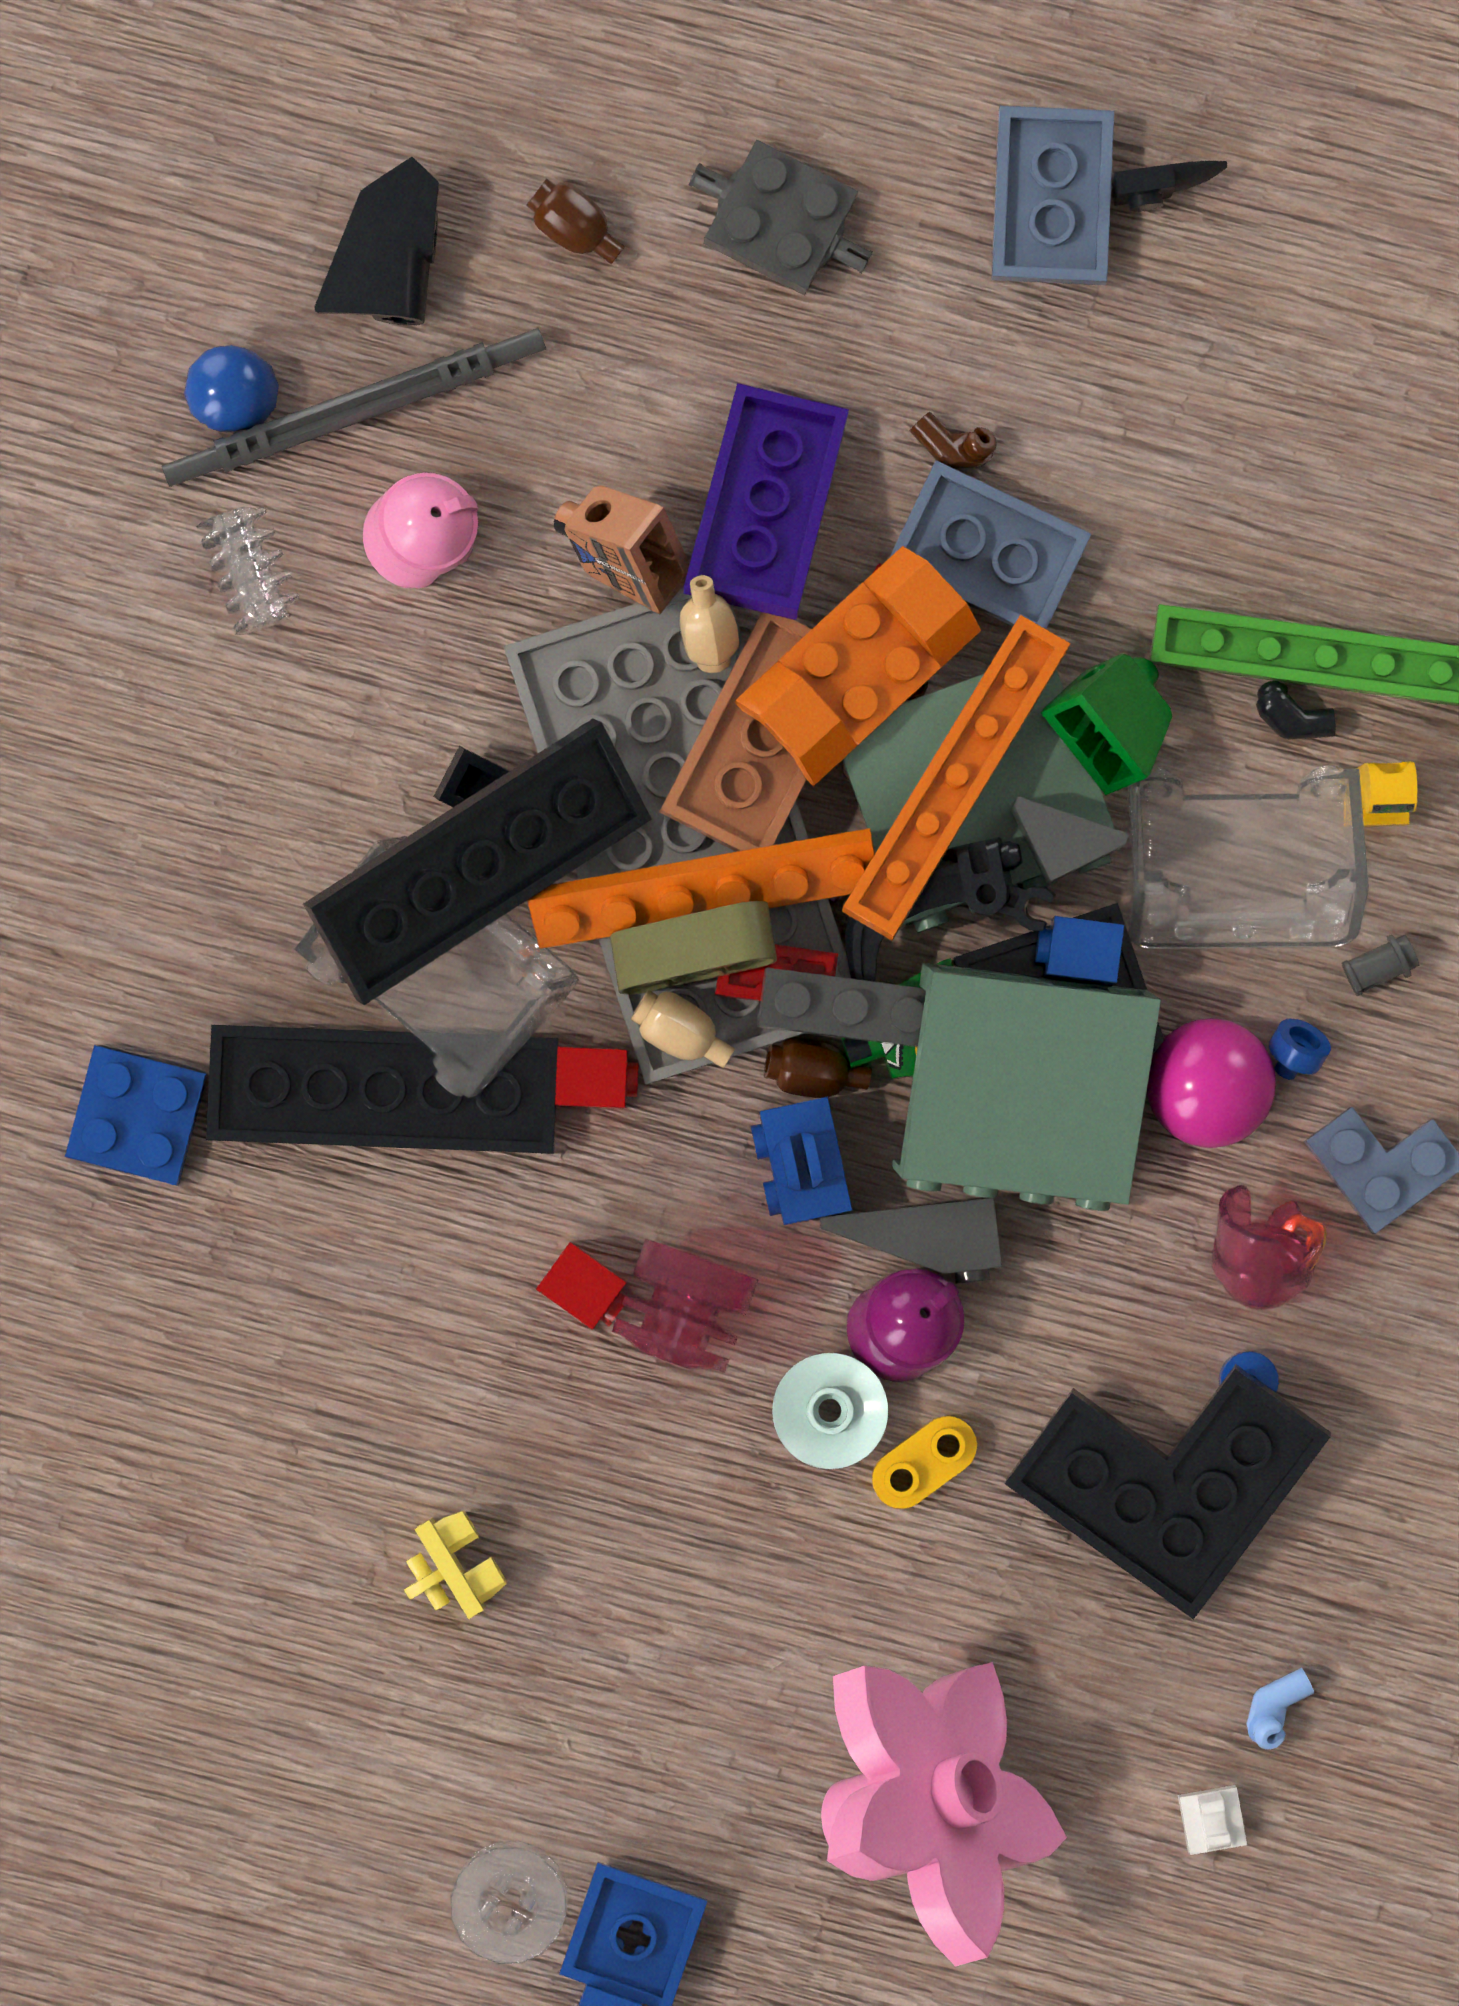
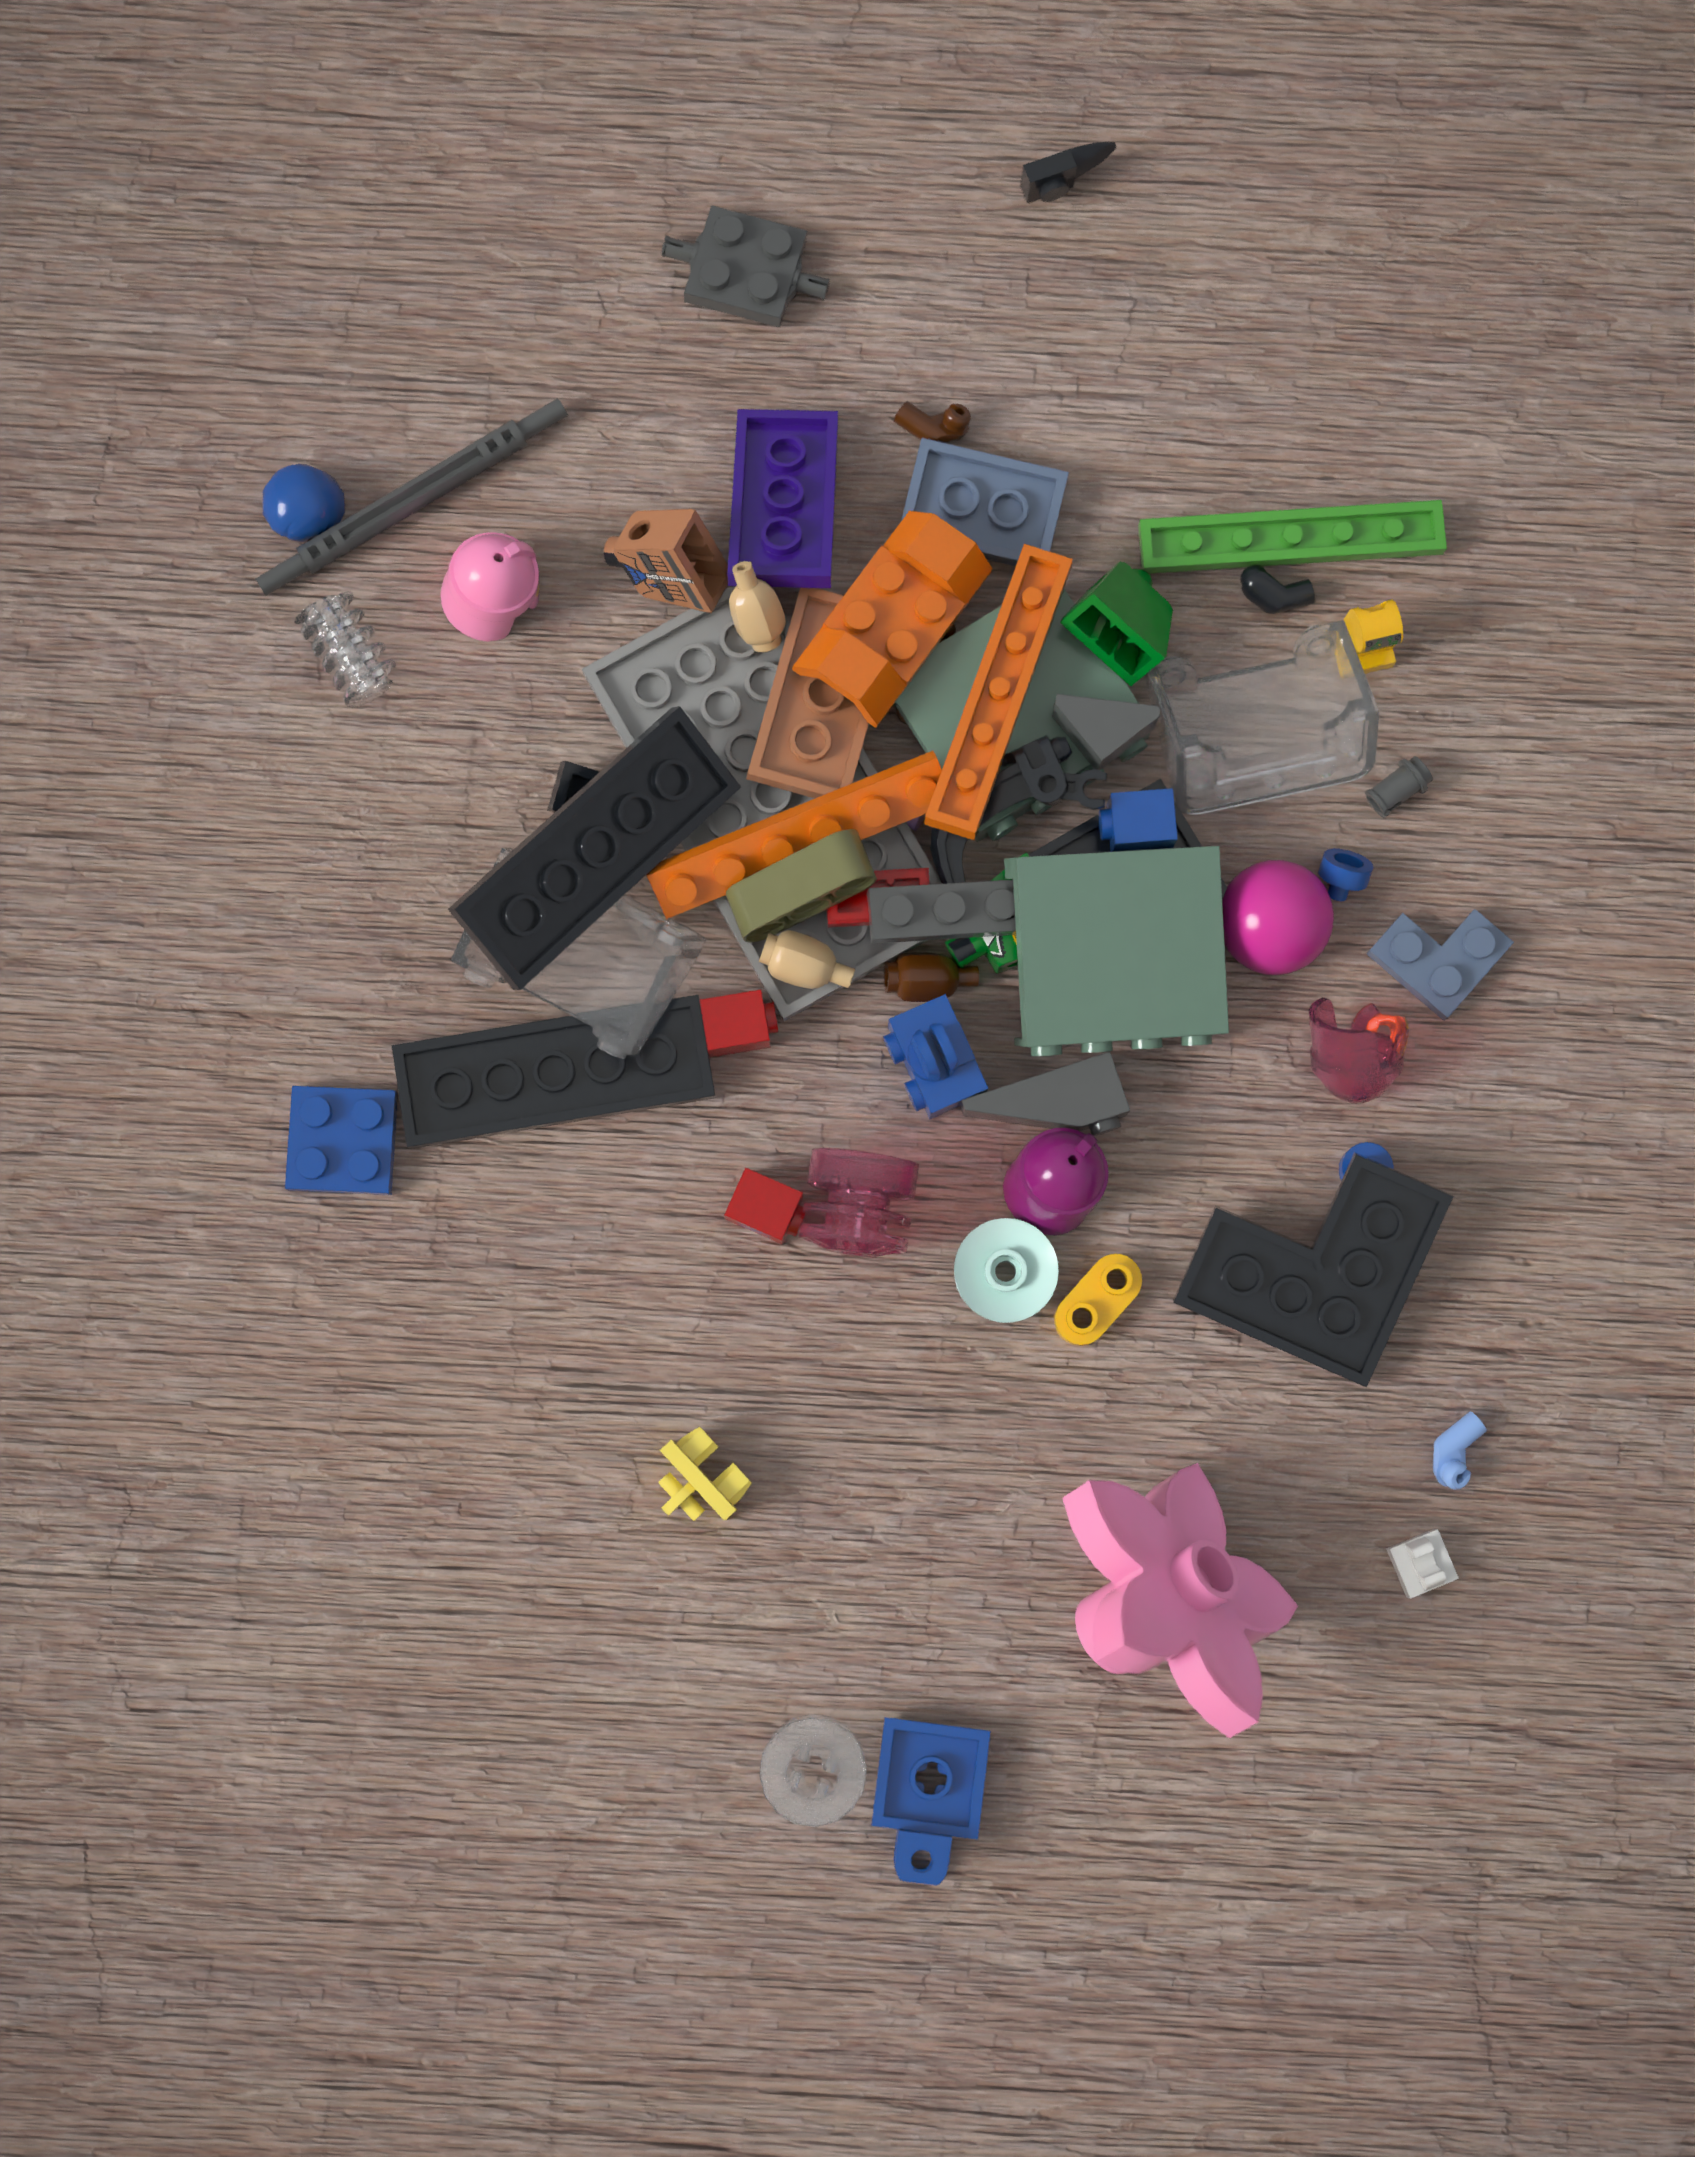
camera: 10 degrees left, 5 degrees down
(386, 249) = (413, 357): black panel -> none
(573, 220) = (568, 303): reddish brown plant -> none
(1052, 195) = (973, 201): sand blue plate -> none

